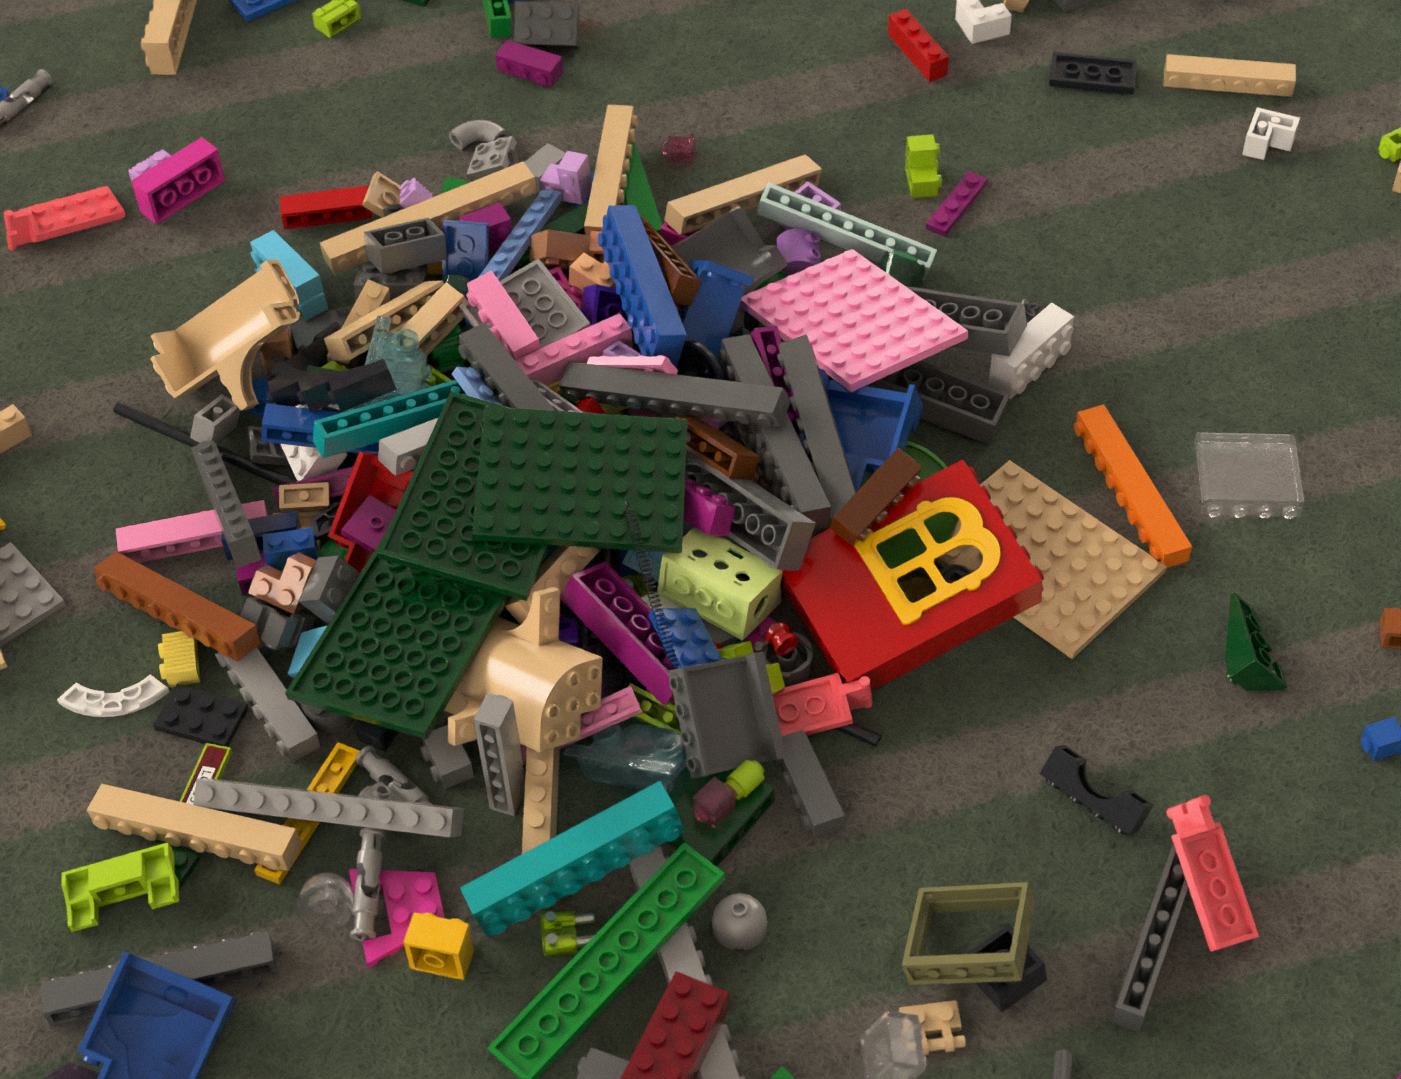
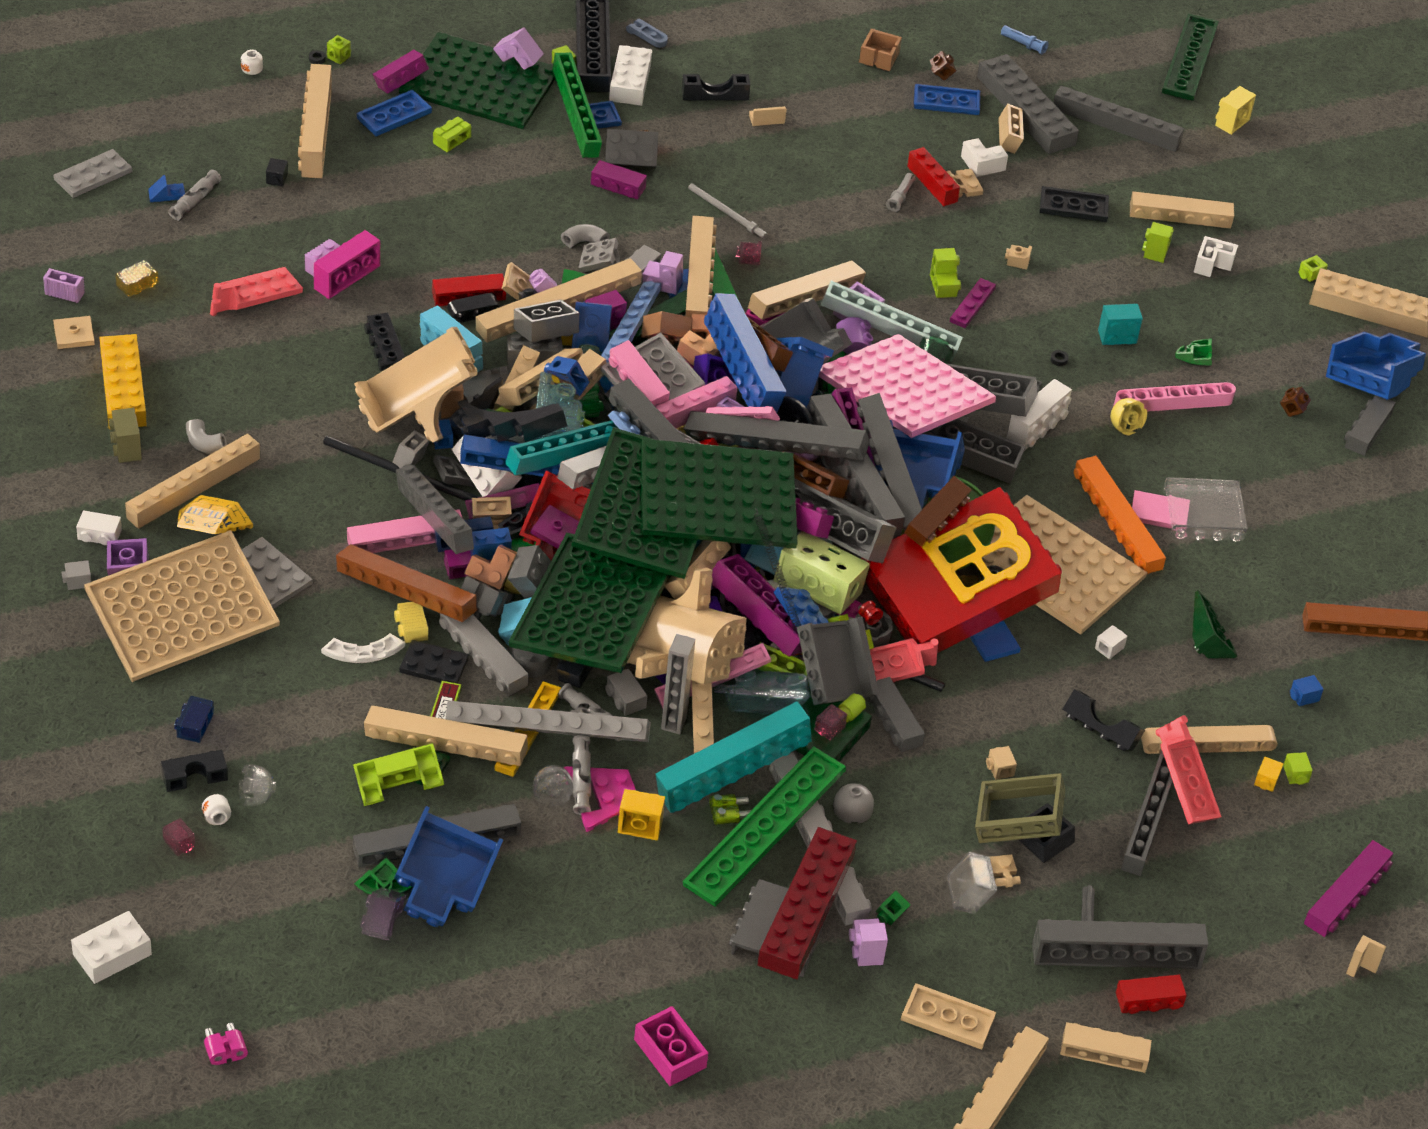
camera: 10 degrees left, 5 degrees down
(63, 1048) = (380, 877): none -> green brick
(119, 69) = (276, 172): none -> black brick
(209, 273) = (384, 339): none -> black brick
(317, 230) = (470, 307): none -> black beam
(406, 311) = (567, 371): none -> blue torso
(686, 115) = (751, 226): none -> light grey bar
(873, 70) = (899, 195): none -> light grey pin
(950, 856) = (1001, 762): none -> tan brick
(955, 672) = (995, 642): none -> blue tile
(962, 51) = (968, 182): none -> tan plate
(1018, 142) = (1018, 256): none -> tan brick
(1063, 266) = (1064, 355): none -> black piece
(1112, 670) = (1111, 642): none -> white brick
(1143, 226) = (1120, 324): none -> teal brick
(1152, 344) = (1128, 412): none -> light yellow cylinder
(1176, 475) = (1152, 509): none -> bright pink tile
(1197, 117) = (1157, 242): none -> lime brick
(1211, 321) = (1181, 396): none -> bright pink beam
(1243, 260) = (1197, 352): none -> green brick
(1258, 814) = (1220, 739): none -> tan beam
(1328, 869) = (1268, 774): none -> yellow brick
(1370, 859) = (1297, 768): none -> lime brick
(1372, 322) = (1295, 401): none -> reddish brown brick

